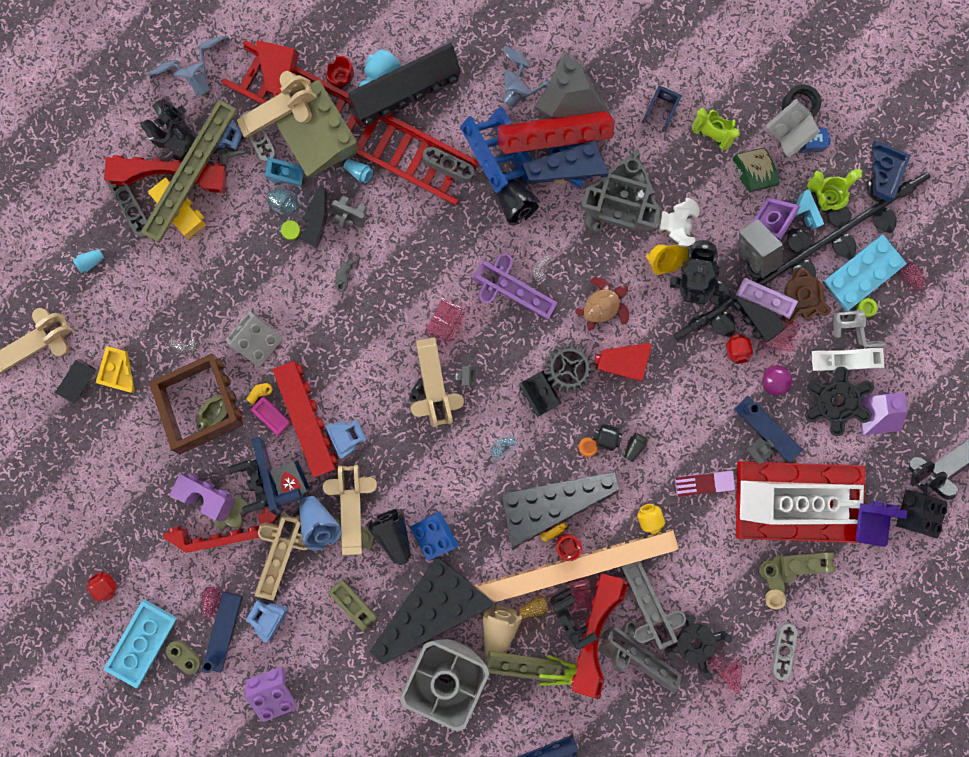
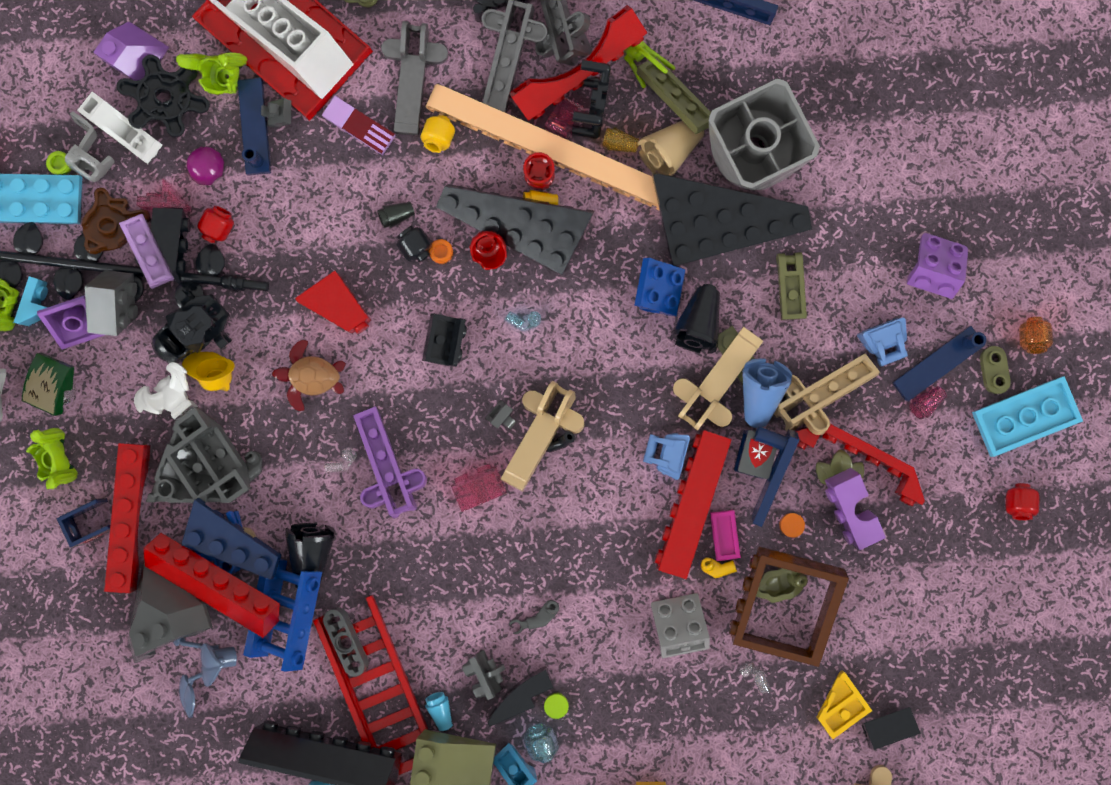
camera: 140 degrees left, 0 degrees up
(174, 700) = (1036, 335): none -> clear orange head
(234, 455) = (792, 525): none -> orange tile
(254, 484) = (793, 478): black plate -> none
(558, 471) = (488, 250): none -> red hair
(583, 359) = (394, 352): dark grey gear -> none
(651, 143) = (123, 540): none -> red arch
(698, 543) = (412, 74): none -> flat silver piece
(821, 443) = (215, 70): none -> lime hair

